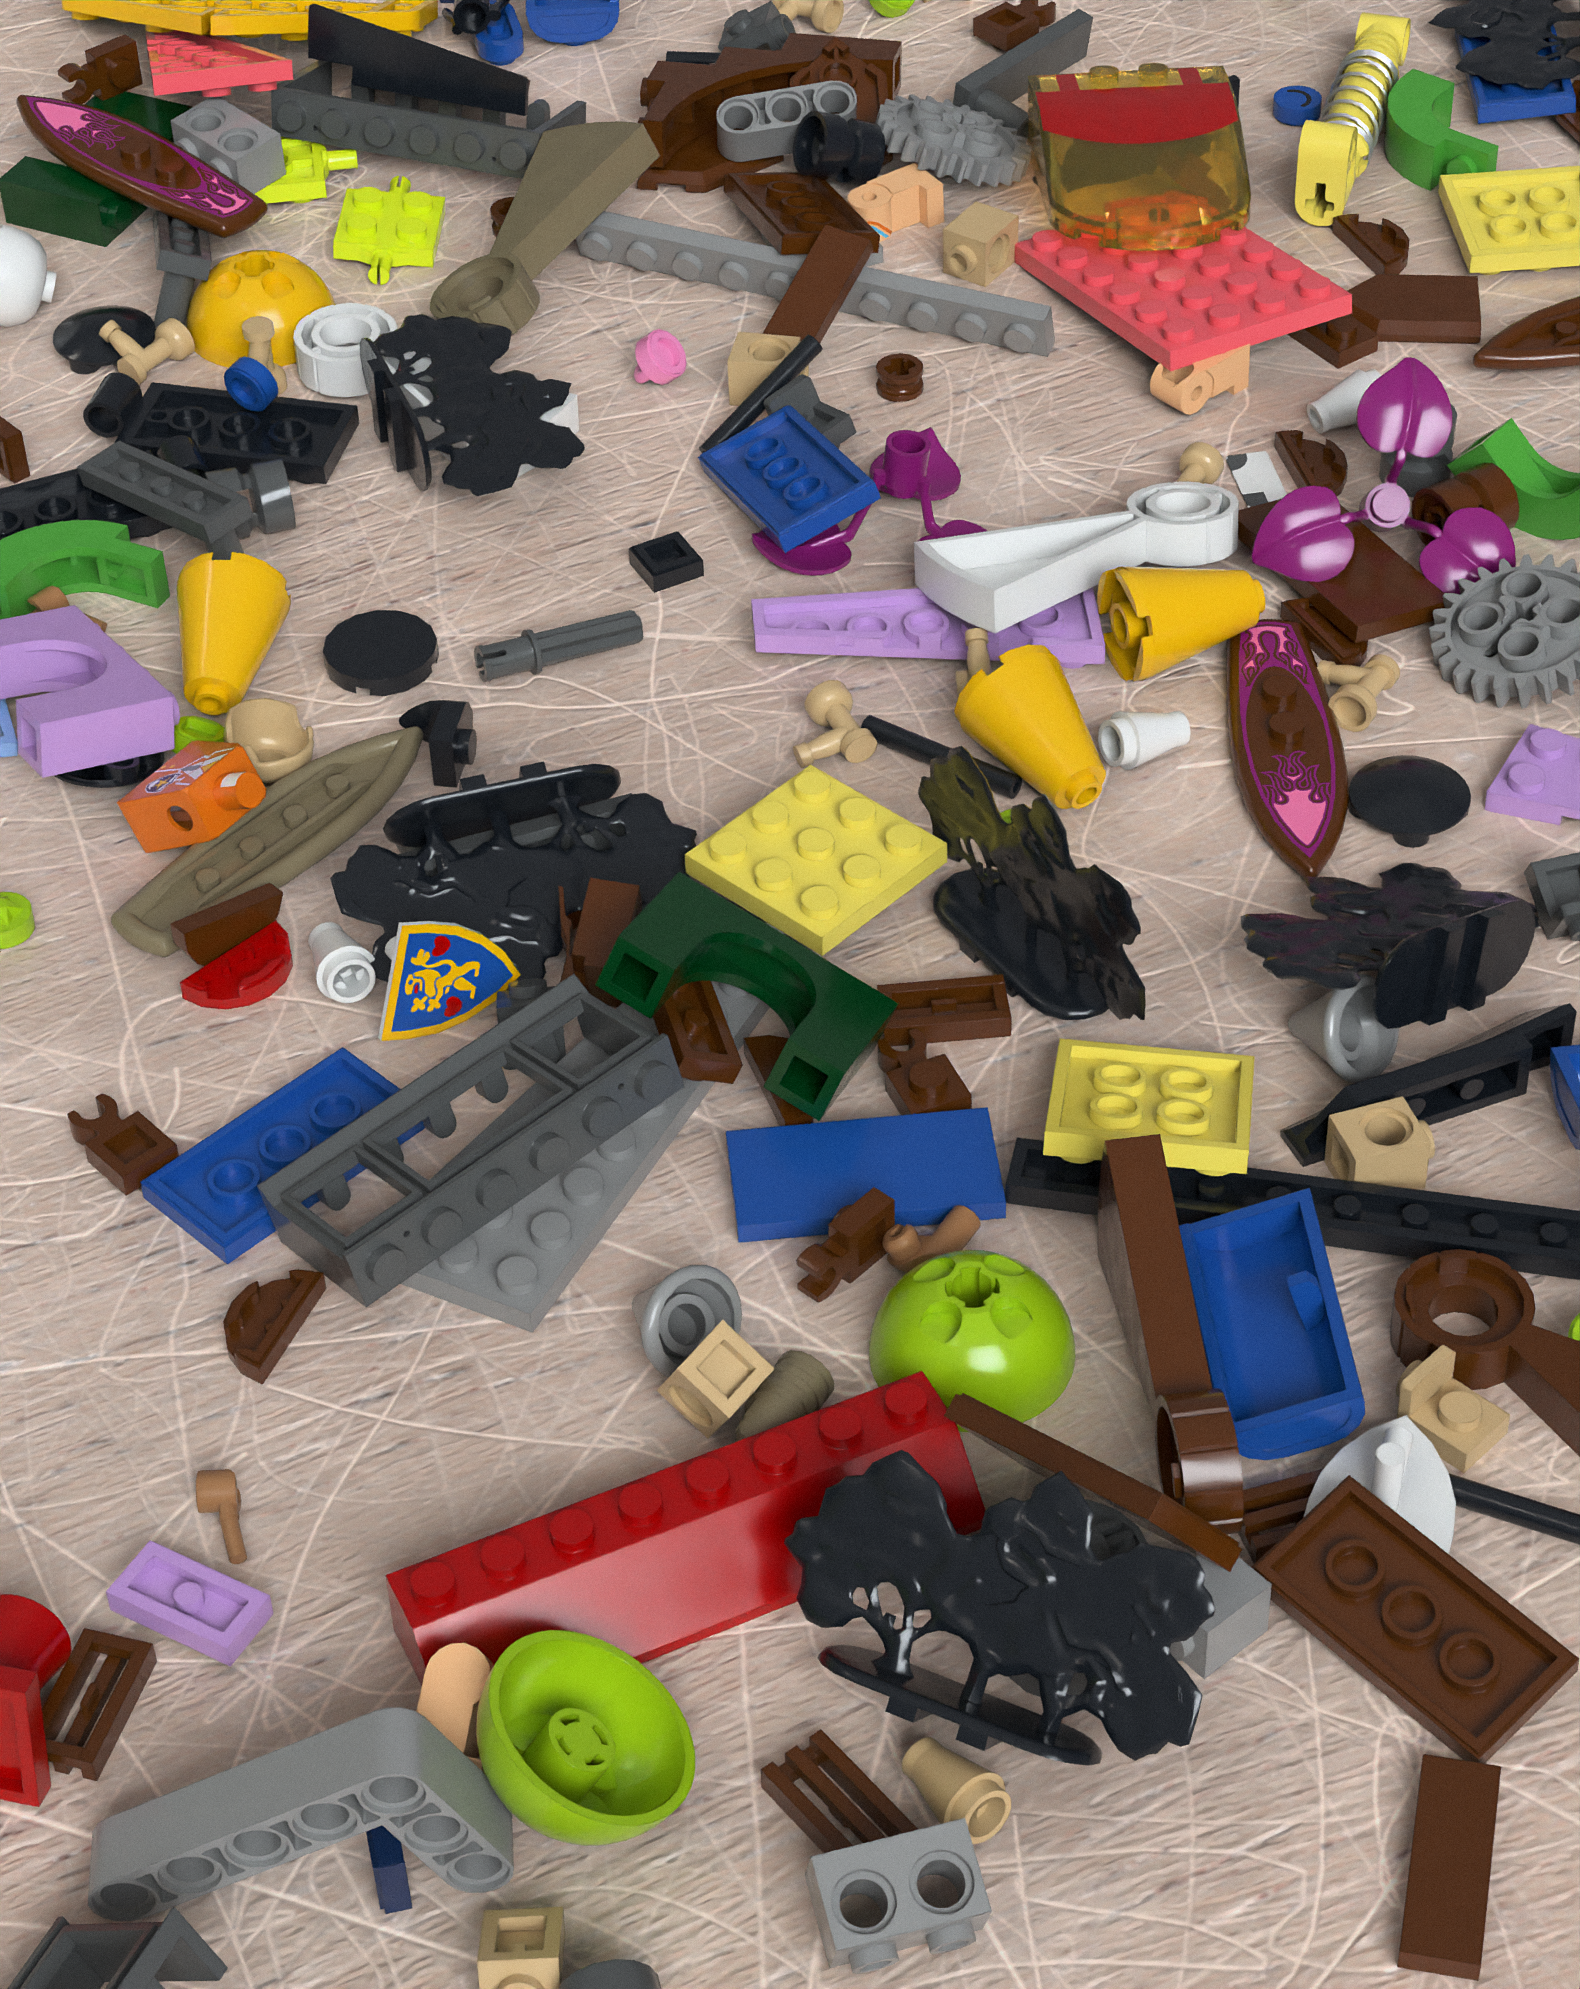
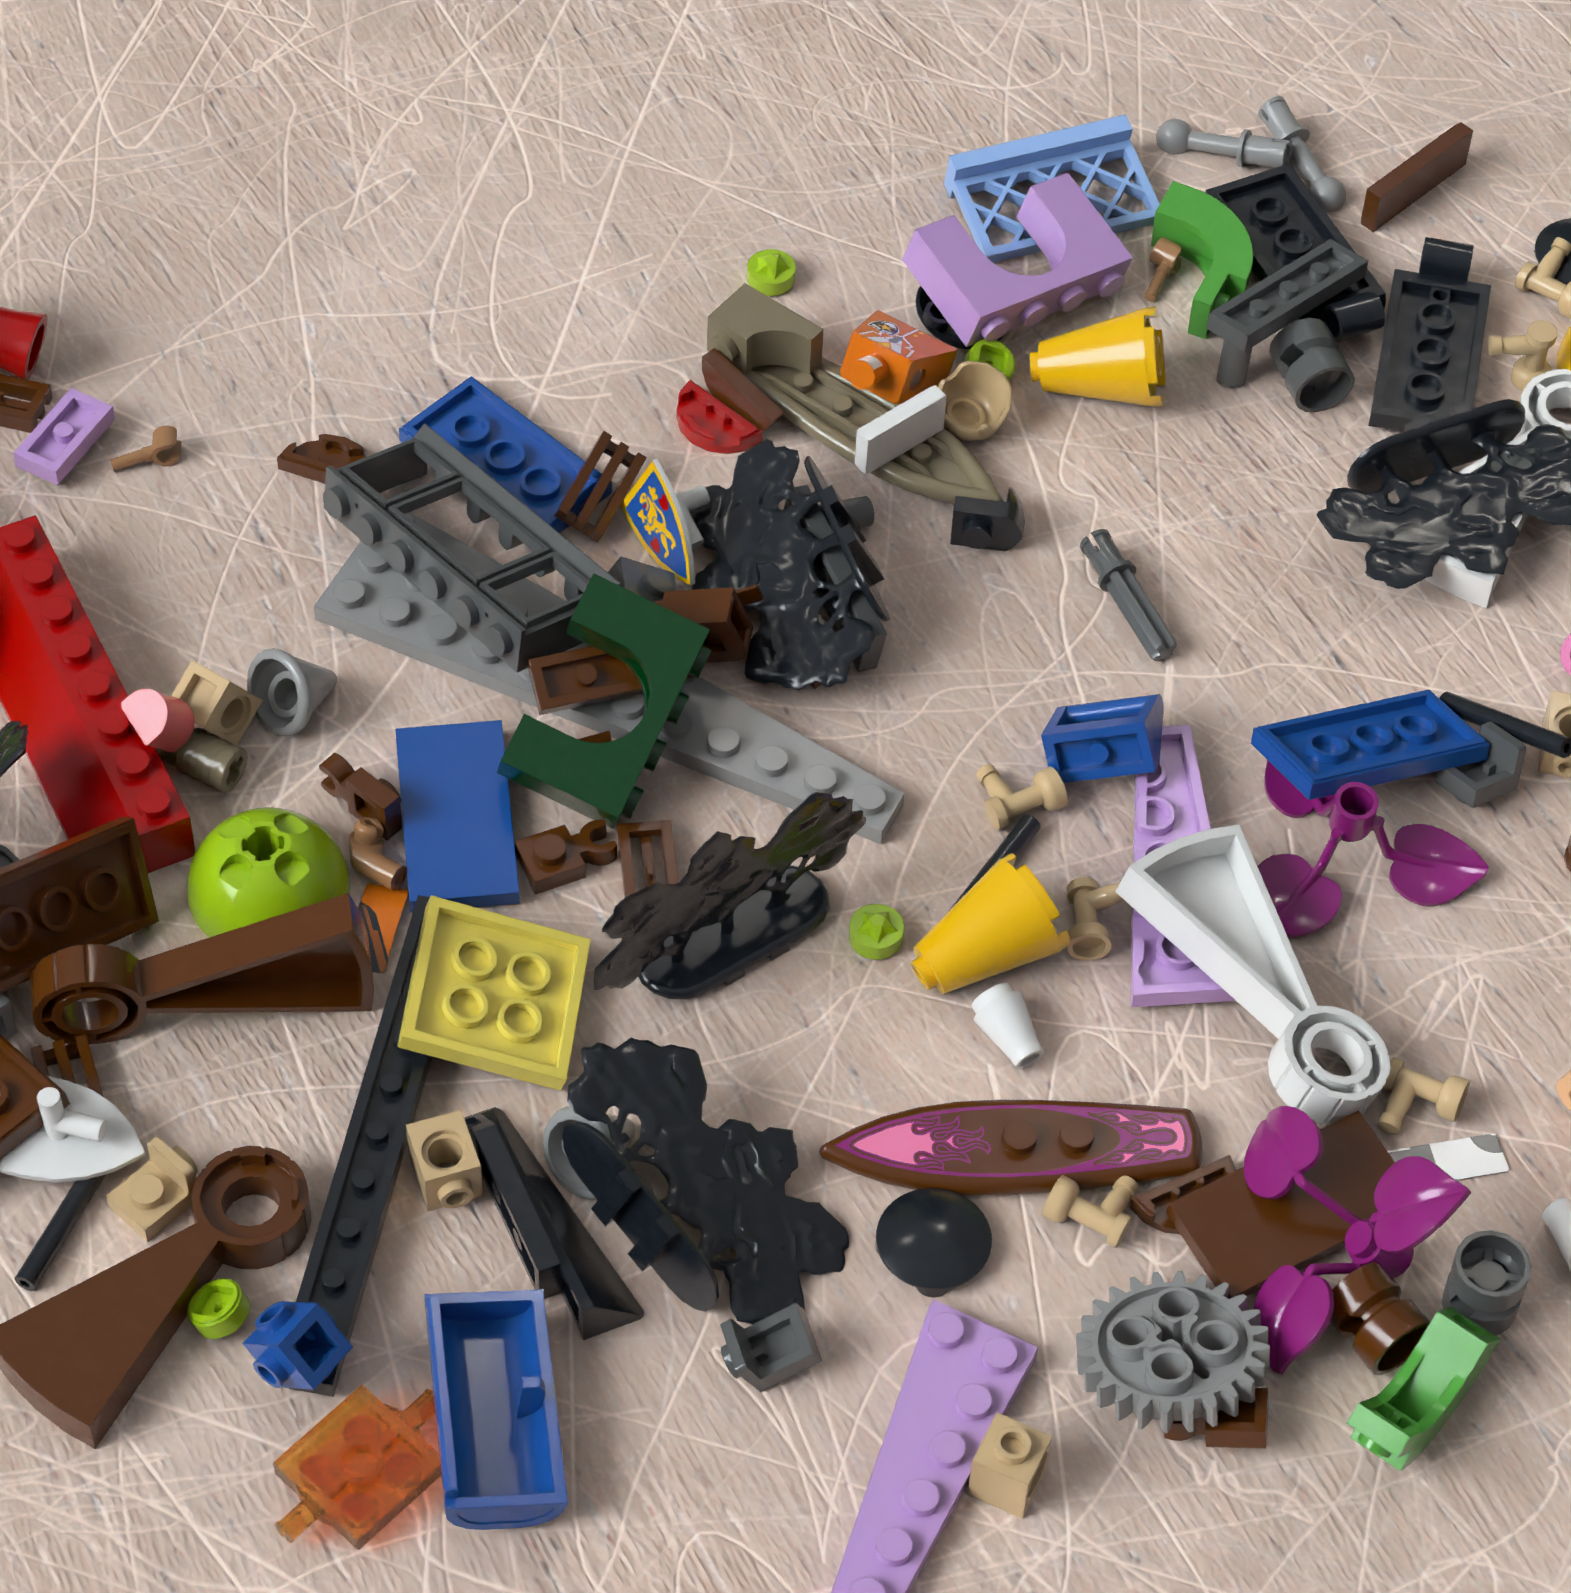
camera: 85 degrees right, 10 degrees up
(119, 1148) = (507, 365): reddish brown plate -> none
(145, 886) = (761, 332): none -> dark tan arch
(250, 384) = (1465, 341): blue tile -> none
(325, 776) = (900, 429): none -> white tile
(341, 964) = (703, 469): white cone -> none
(361, 1045) = (618, 455): none -> reddish brown tile
(380, 652) = (1120, 477): black tile -> none
(666, 561) = (1270, 673): black tile -> none
(771, 1398) = (159, 719): none -> brick
(791, 658) = (1105, 738): none -> blue tile
(816, 859) = (809, 744): light yellow plate -> none
(1036, 1245) = (381, 914): none -> orange sticker
(1173, 614) = (1160, 1037): yellow cone -> none
(1274, 1326) = (239, 1053): blue container -> none
(1311, 461) = (1491, 1206): reddish brown tile -> none

